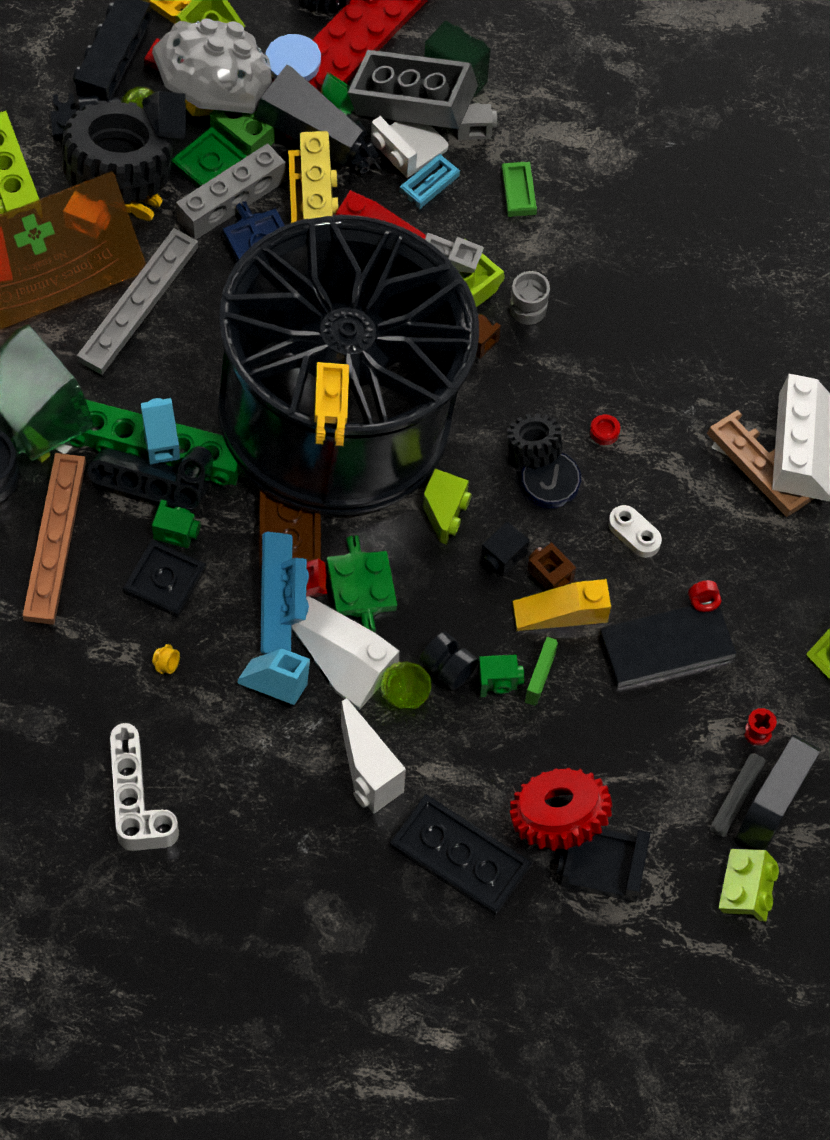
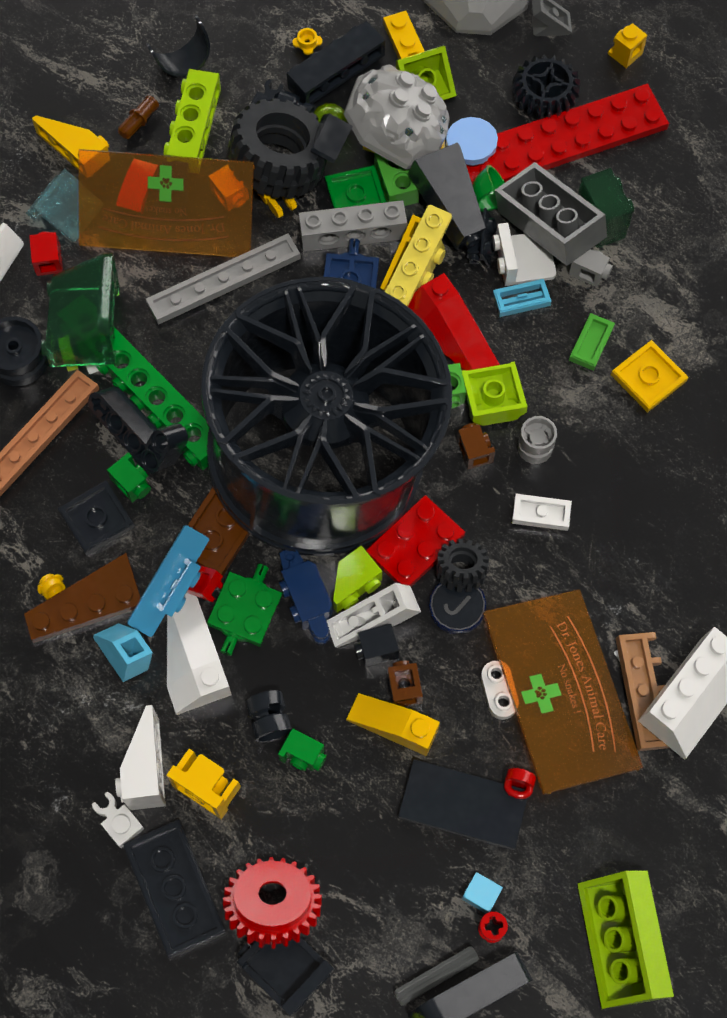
camera: 35 degrees right, 5 degrees up
(69, 35) = (307, 40): none -> yellow plate
(160, 430) = (155, 395): medium azure slope -> none
(211, 652) = (91, 600): none -> reddish brown wing
(331, 400) = (258, 450): yellow hinge -> none
(373, 828) = (119, 823): none -> white plate
(405, 685) = (218, 717): clear neon green hair -> none
(411, 540) = (308, 595): none -> dark blue hinge
(432, 748) = (203, 783): none -> yellow panel
(462, 253) = (491, 369): light grey slope -> none
(478, 444) = (414, 542): none -> red plate
(490, 512) = (383, 608): none -> white slope
(541, 671) = (339, 769): bright green tile -> none
(573, 359) = (541, 512): none -> white plate
(589, 193) = (649, 376): none -> yellow tile
(605, 429) = (531, 586): red tile -> none
(690, 501) = (562, 691): none -> clear orange piece
(731, 707) = (482, 893): none -> medium azure slope

